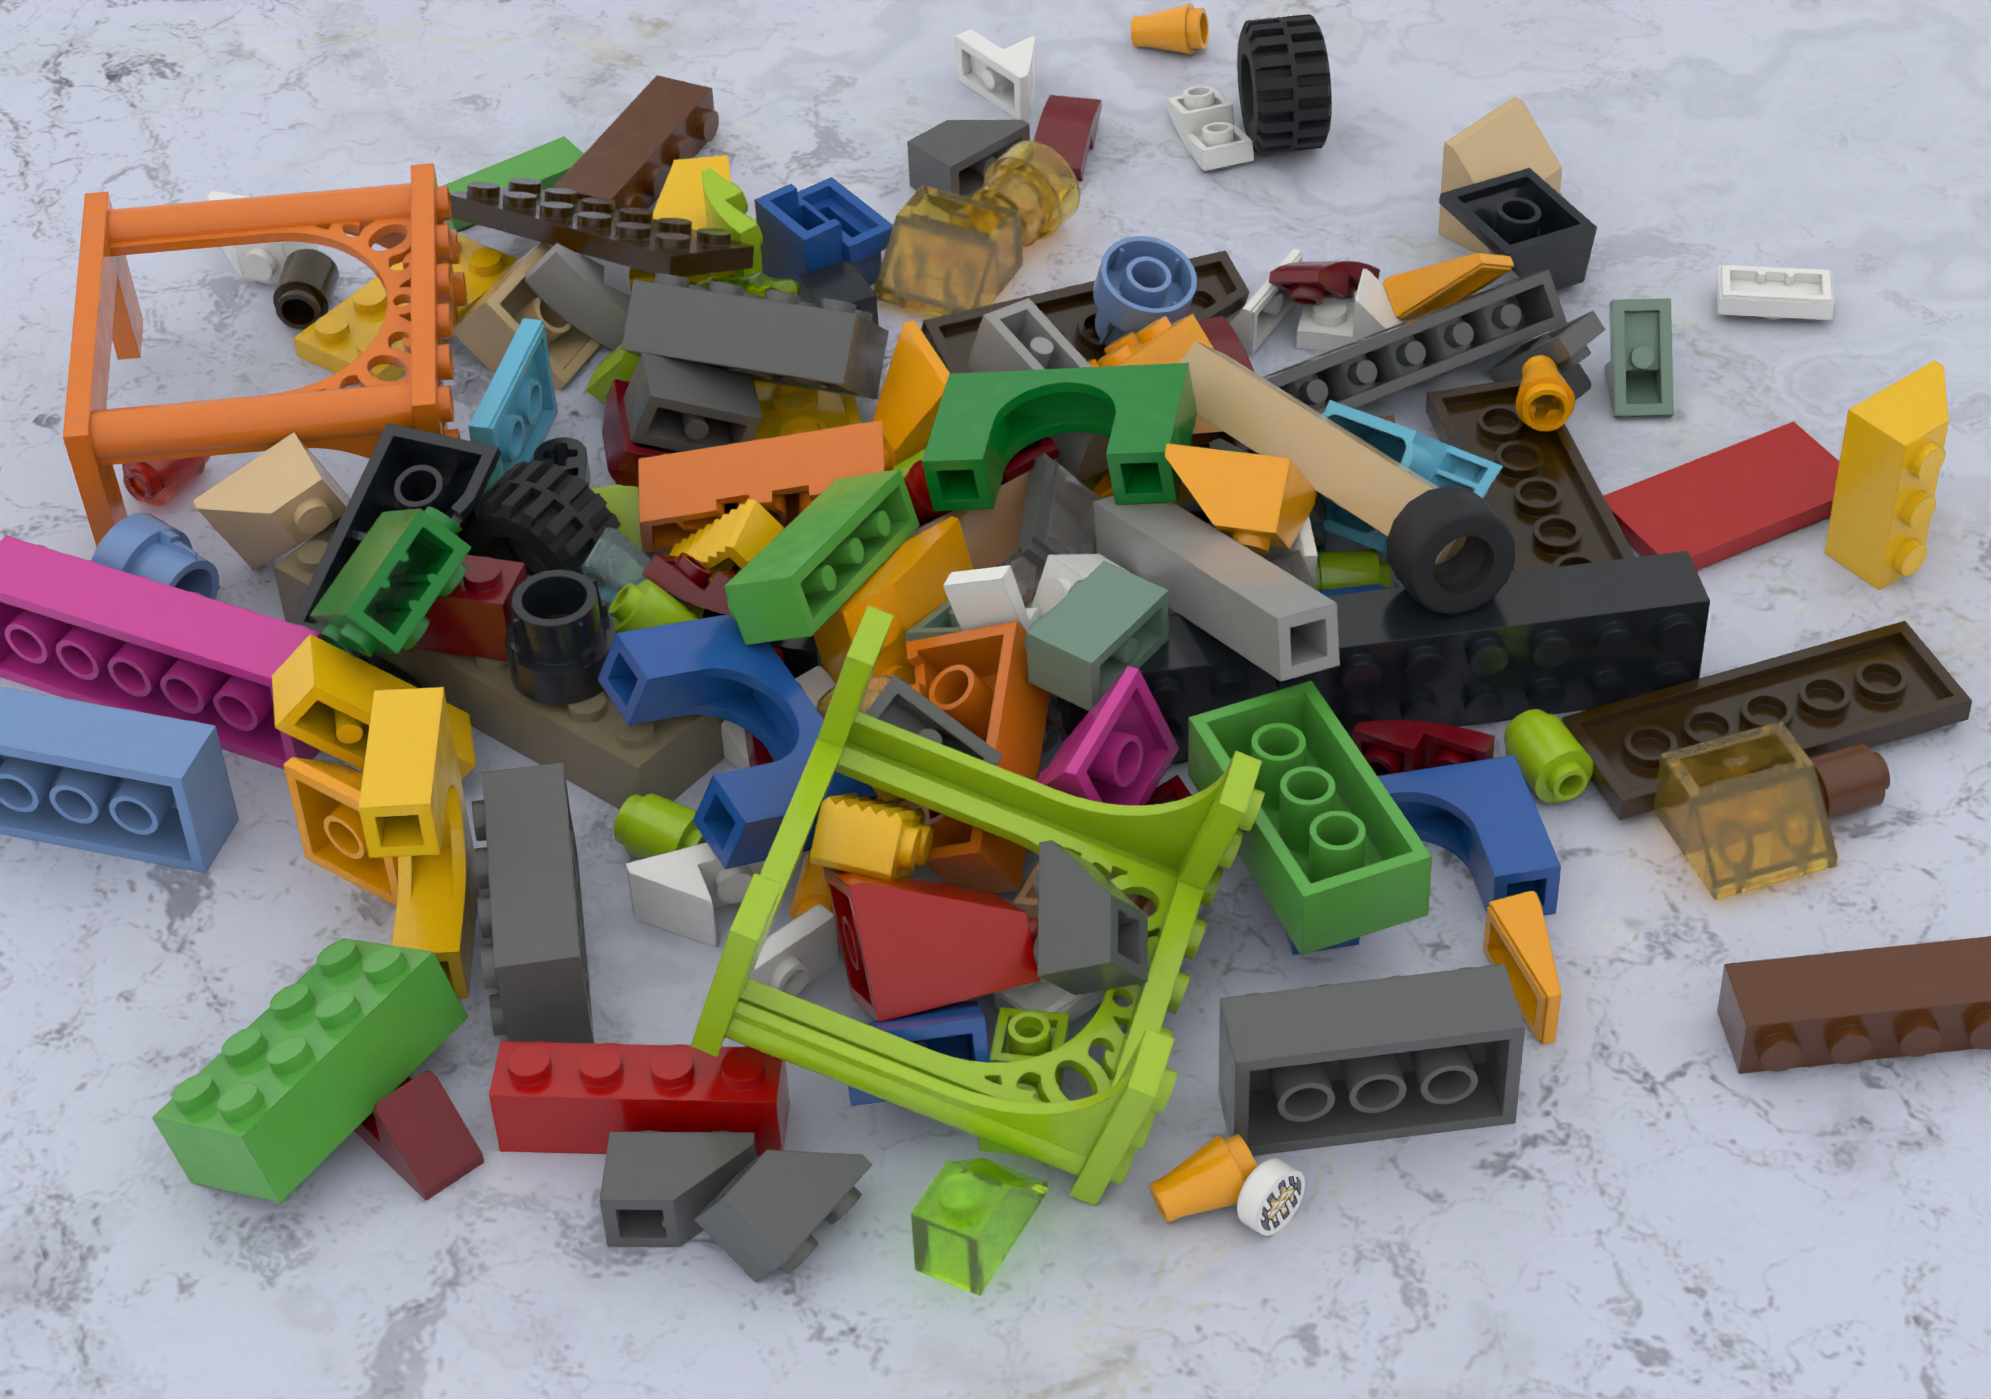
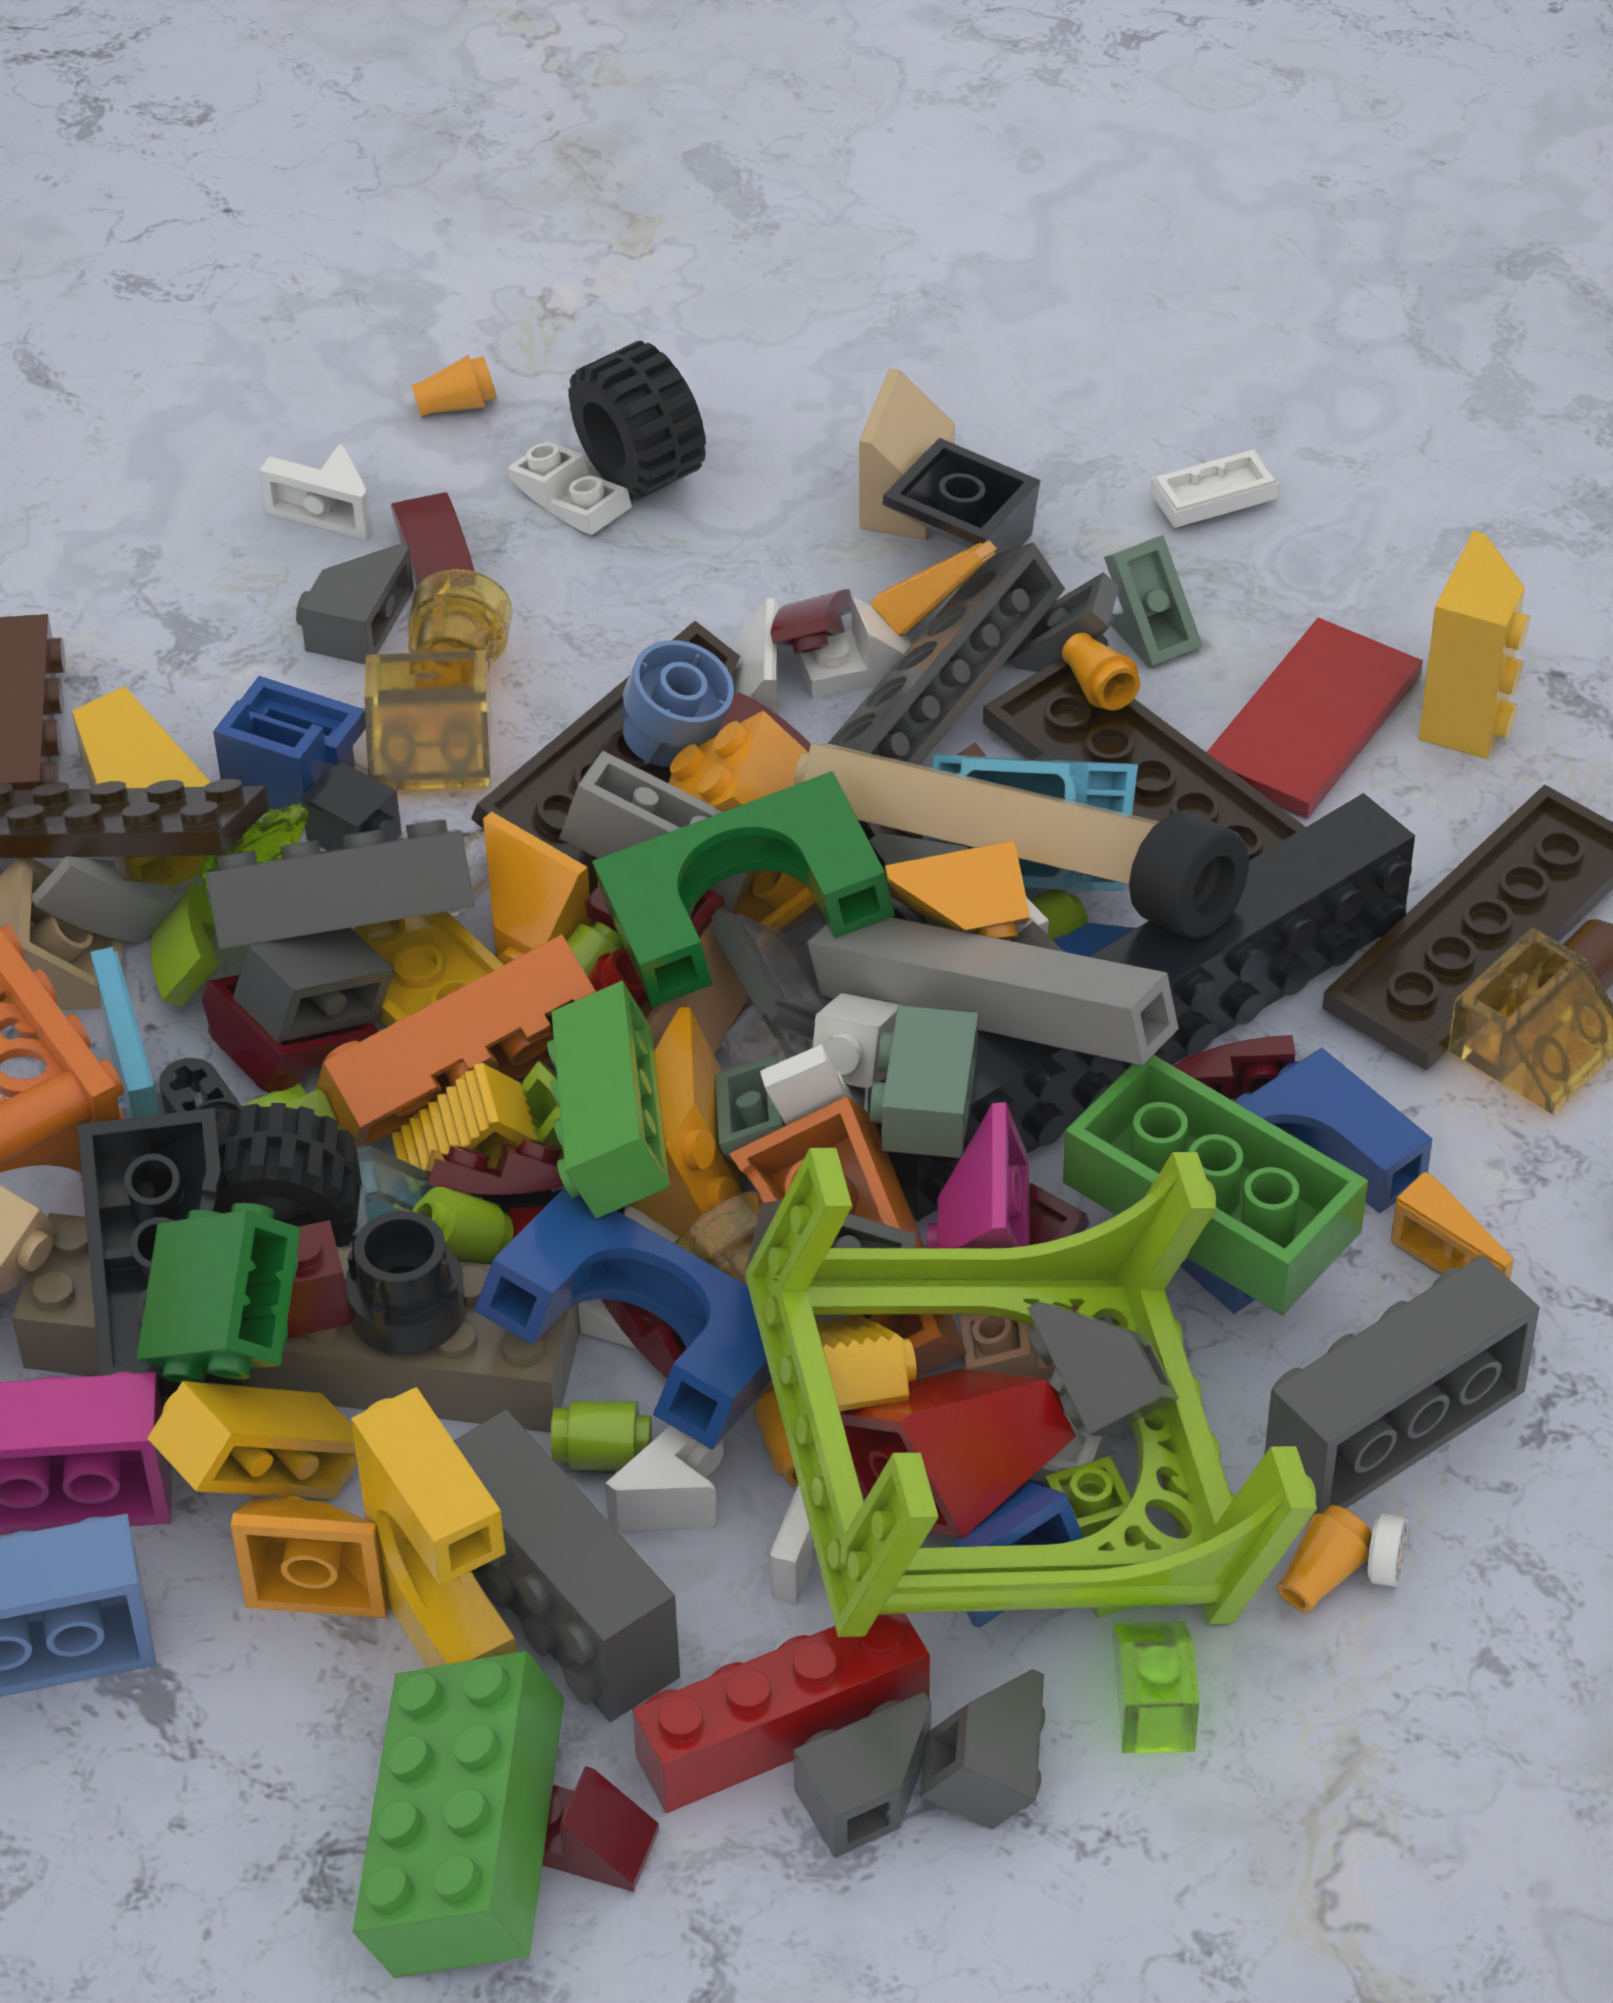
camera: 30 degrees left, 5 degrees up
(726, 210) = (187, 755): lime slope -> none
(1548, 756) = (1336, 1028): lime brick -> none

